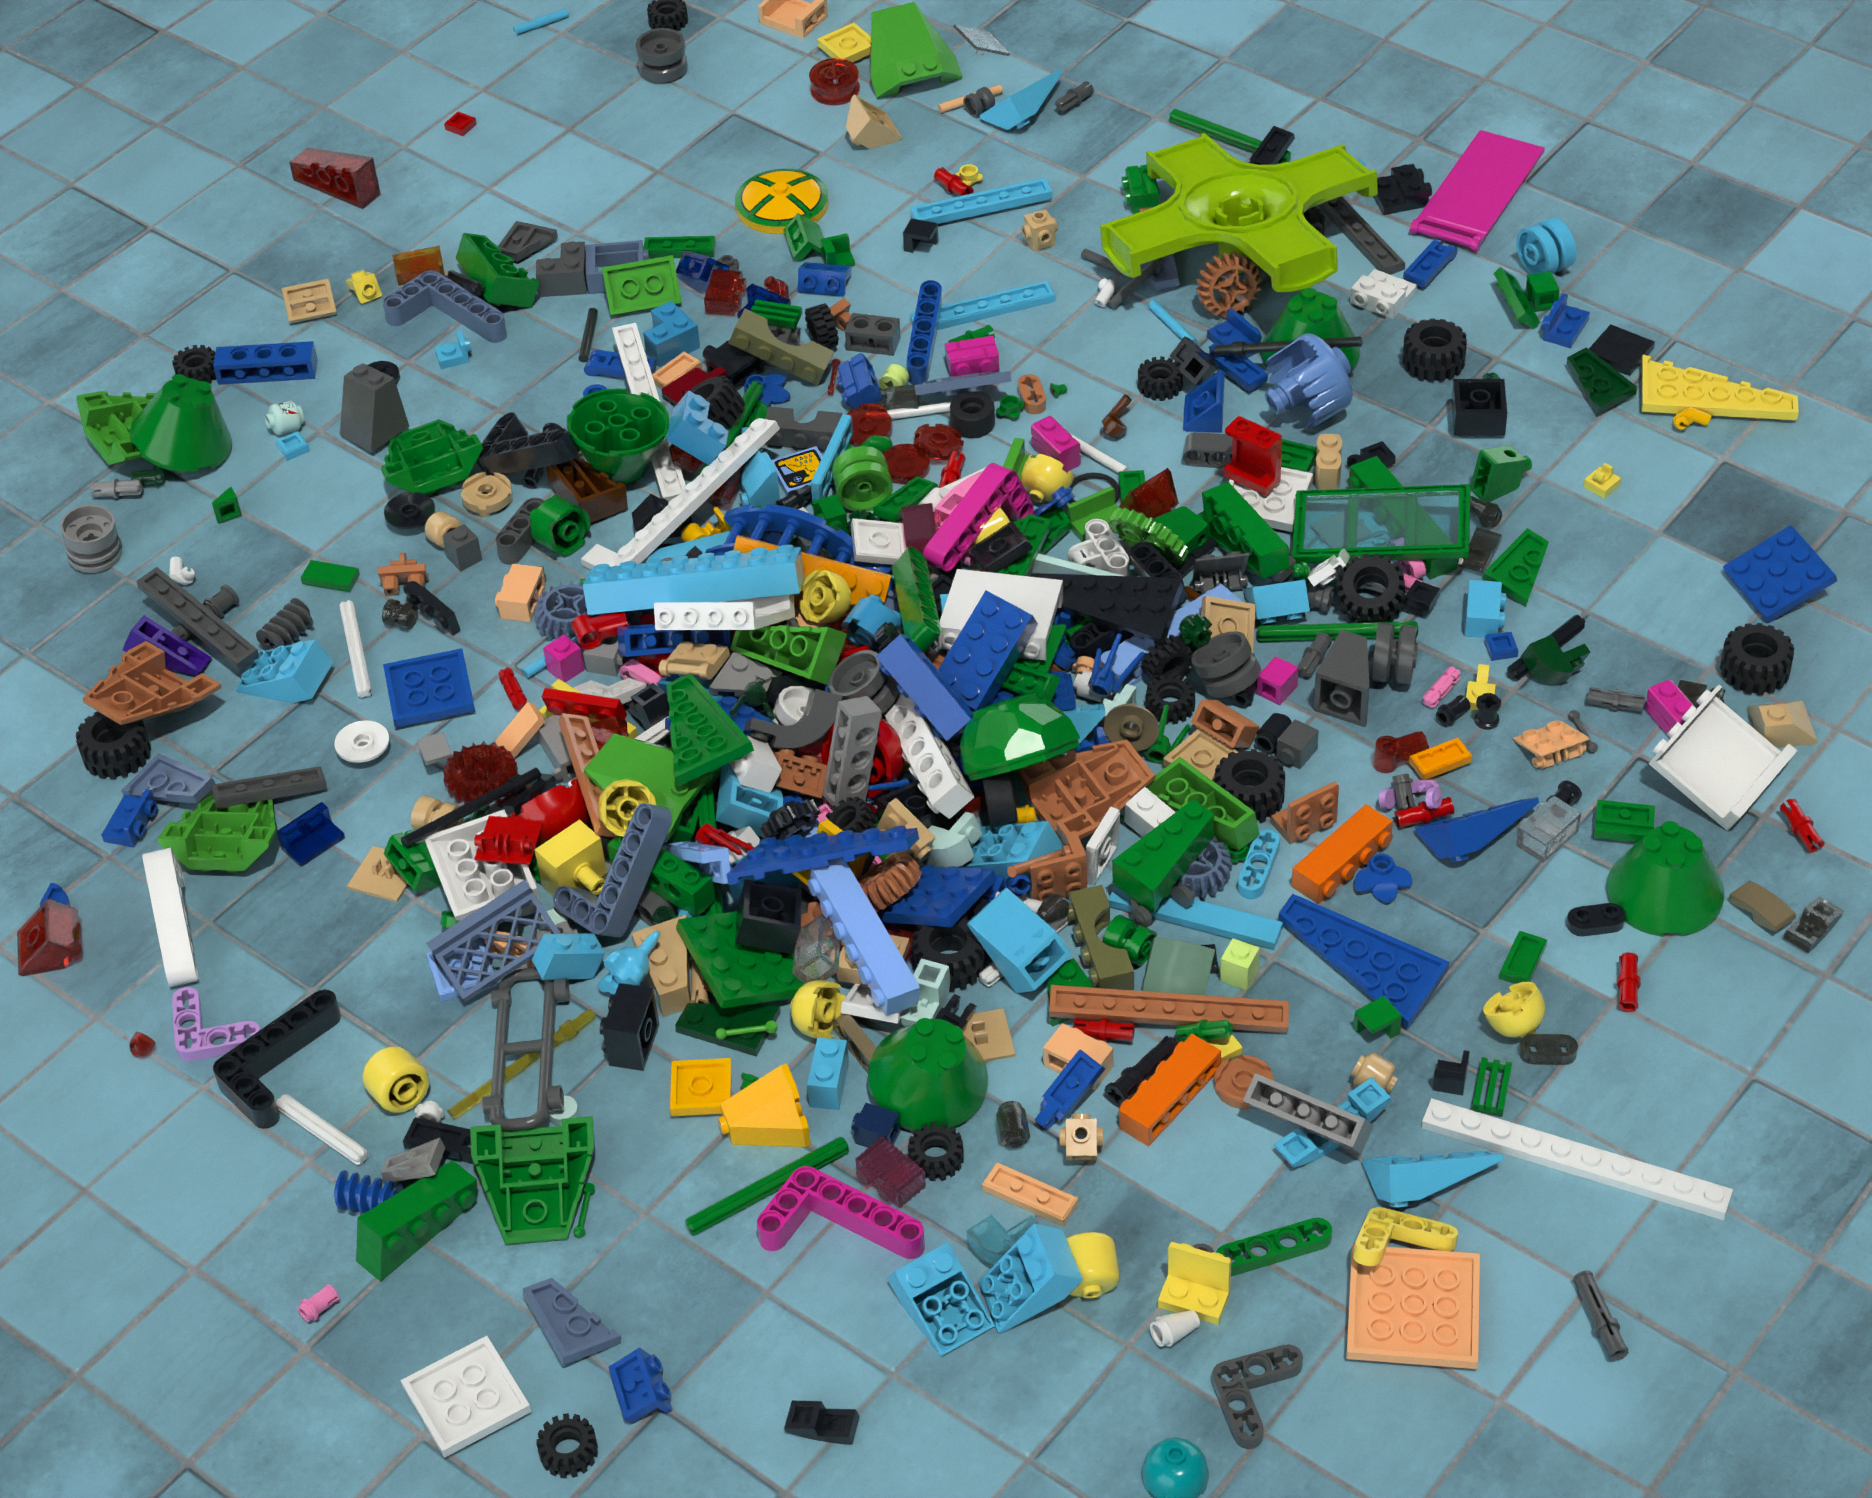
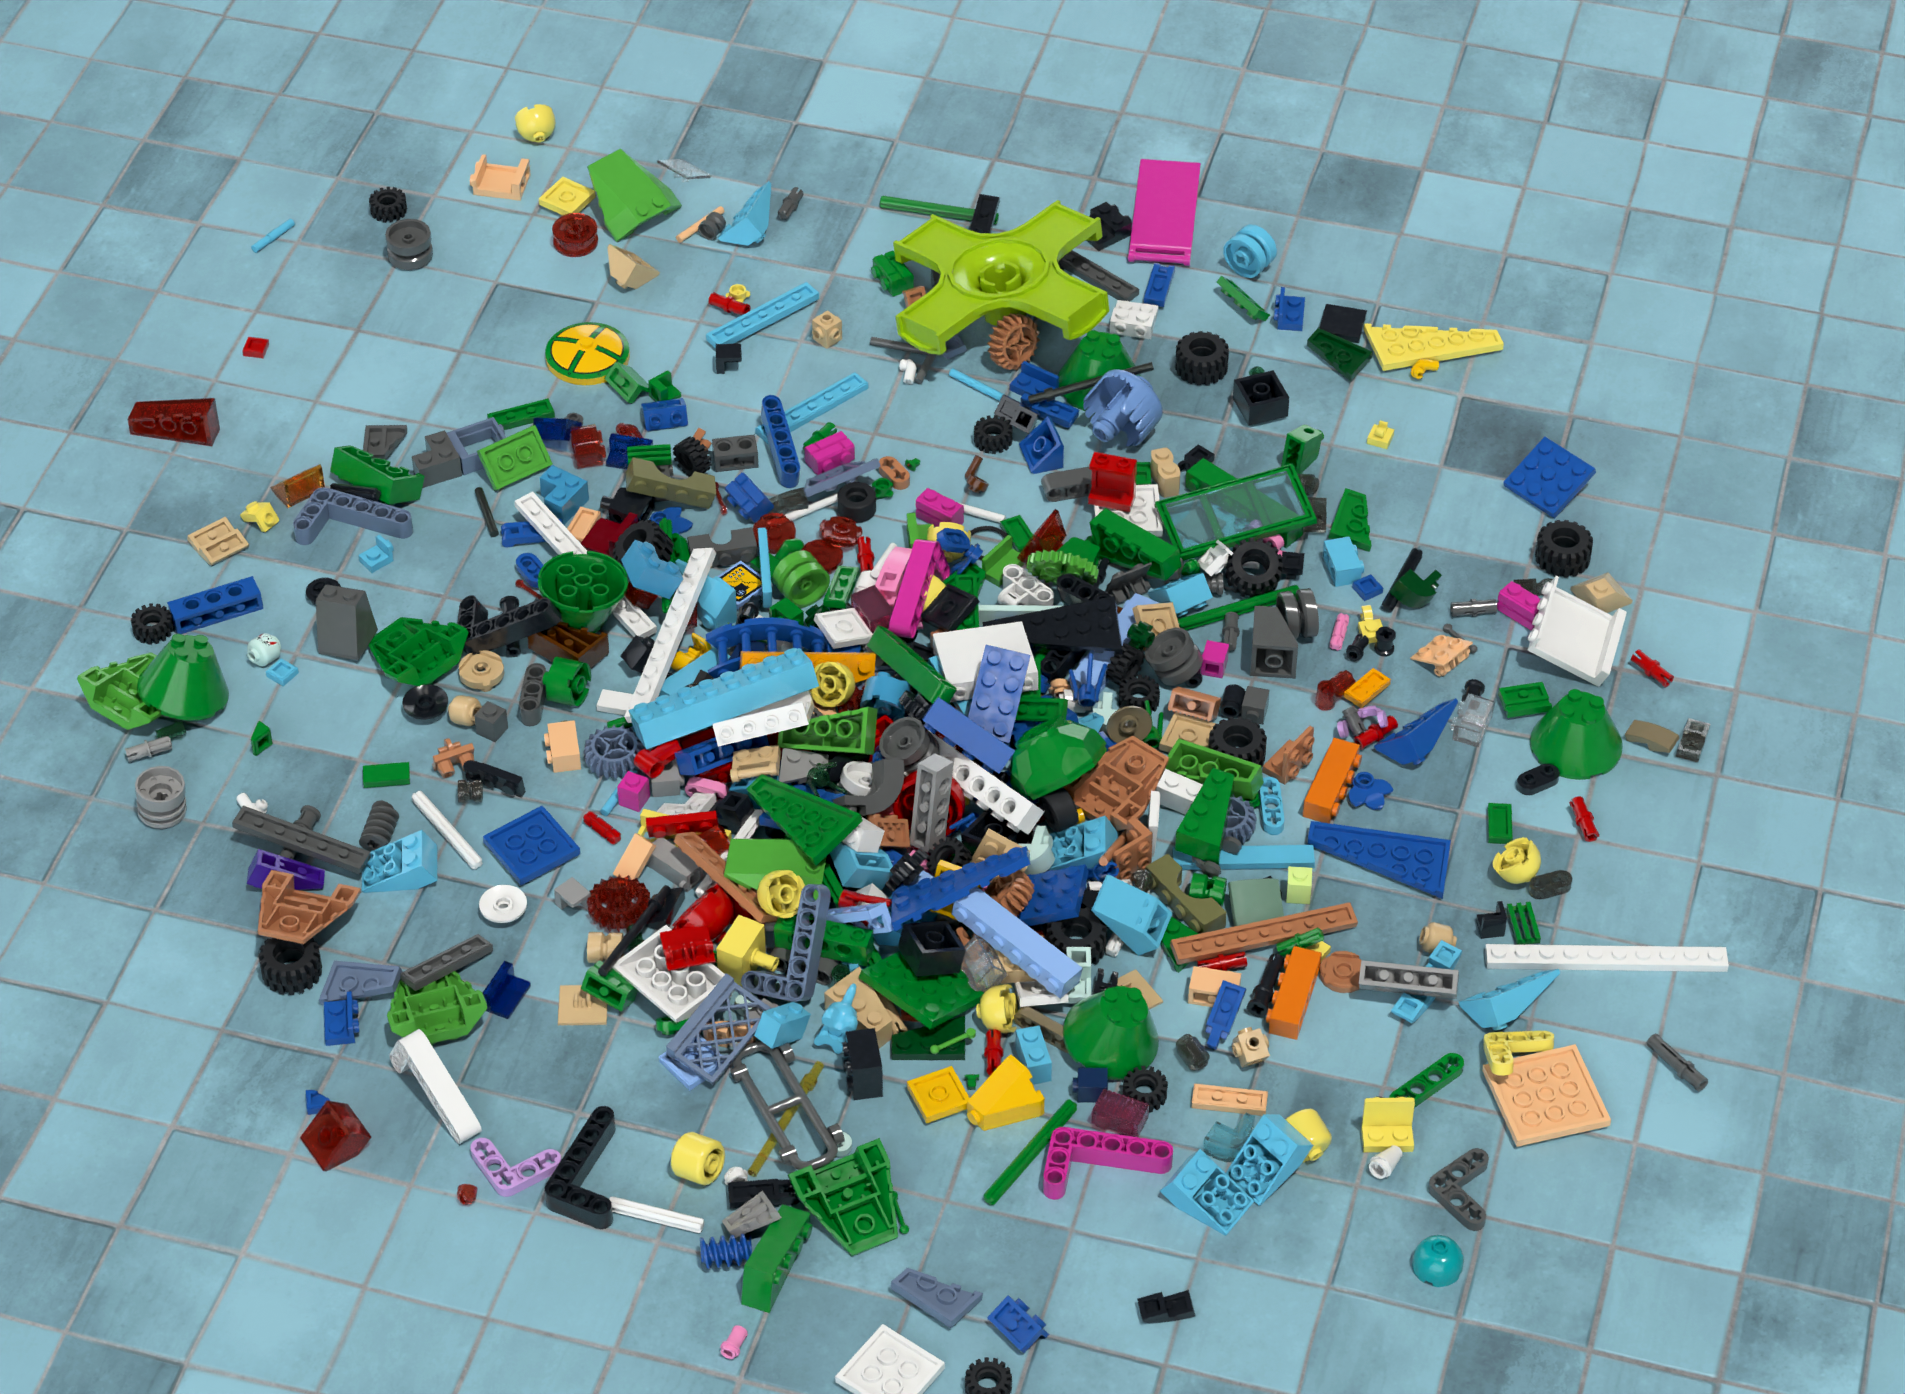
camera: 25 degrees left, 0 degrees up
(791, 1051) = (993, 1050): none -> red pin
(894, 376) = (774, 486): yellowish green wheel -> none
(1039, 475) = (953, 540): none -> blue plate
(1378, 1016) = (1422, 895): green panel -> none
(1541, 291) = (1261, 288): green brick -> none

